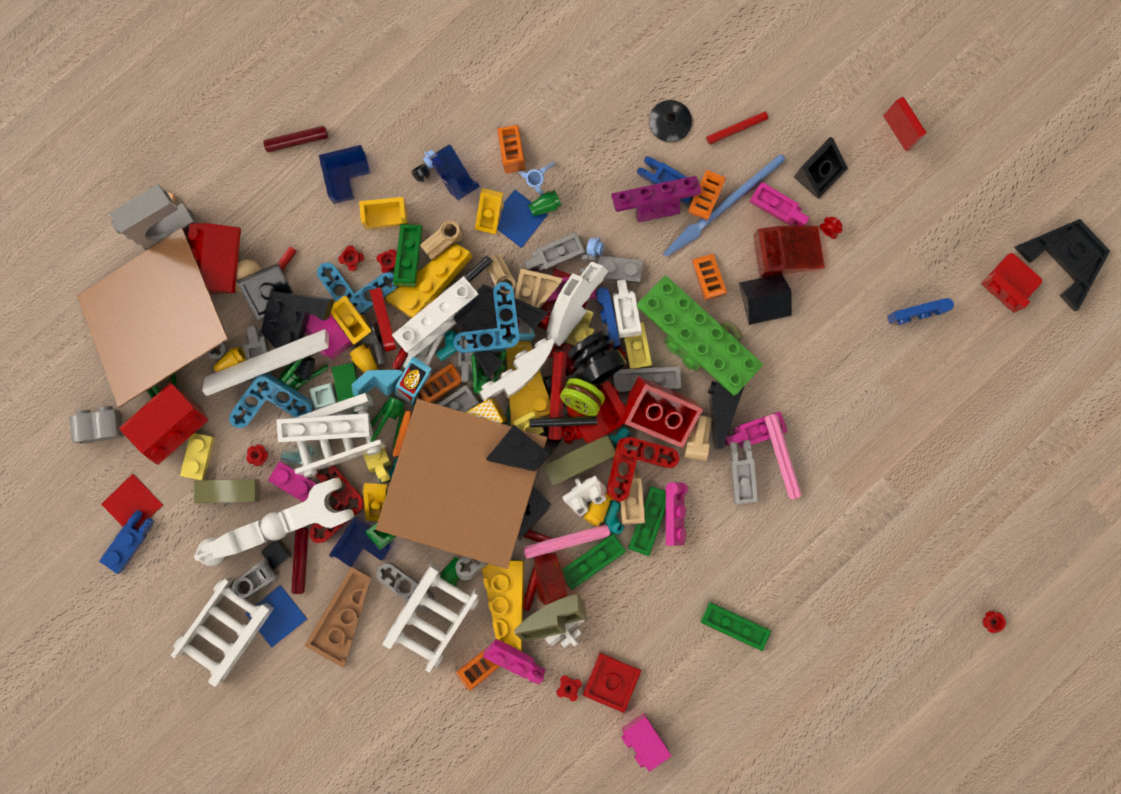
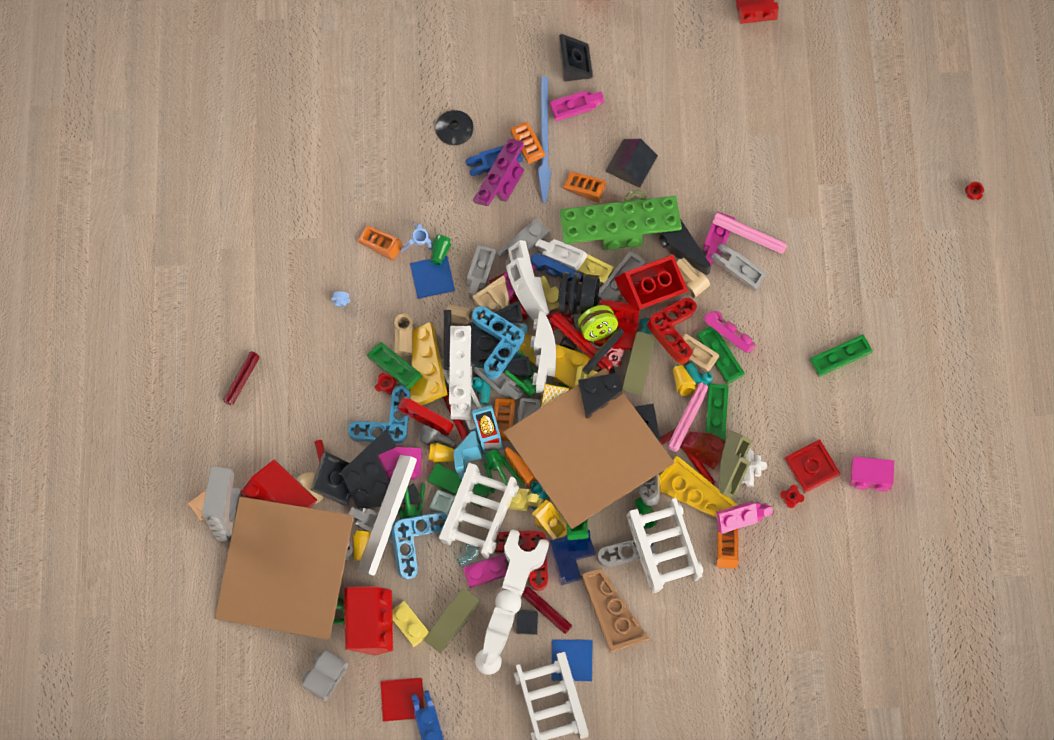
camera: 45 degrees left, 15 degrees down
(257, 461) = (444, 586): red plate -> none
(258, 578) = (534, 647): light grey piece -> none
(323, 427) = (469, 507): white plate -> none
(339, 168) = (290, 363): clear blue panel -> none
(346, 254) = (356, 403): red plate -> none
(350, 320) = (409, 436): yellow slope -> none
(383, 212) = (350, 358): yellow panel -> none
(420, 172) = (343, 313): black hinge -> none
(452, 172) = (366, 292): clear blue panel -> none
(489, 211) = (412, 288): yellow slope -> none
(585, 492) = (664, 378): white hips -> none
(595, 247) = (499, 240): light blue plate -> none
(737, 127) = (498, 89): red bar -> none
(788, 250) = (610, 122): clear red slope -> none
(831, 227) = (620, 83): red plate -> none
(922, 311) = (726, 72): blue hinge -> none

